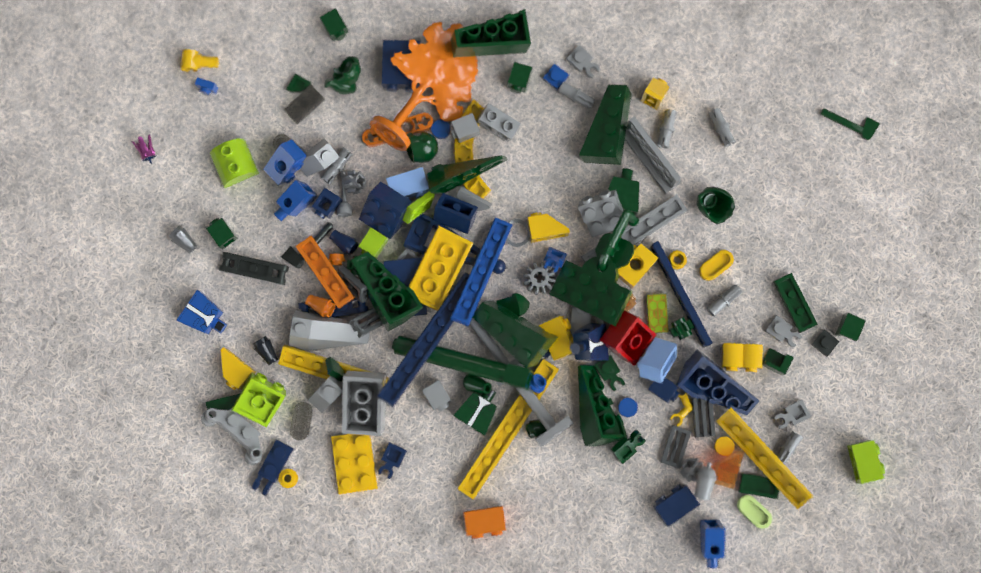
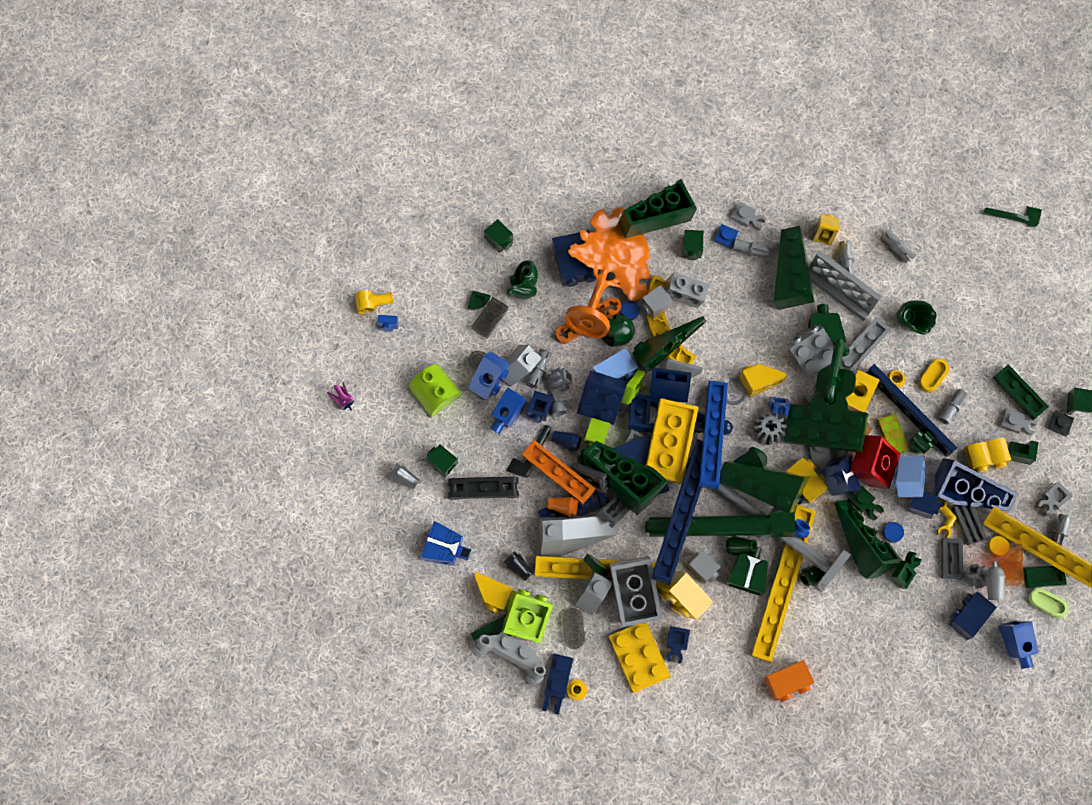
camera: 25 degrees left, 10 degrees down
(336, 259) = (565, 457): orange plate -> none
(408, 420) = (684, 596): none -> yellow piece

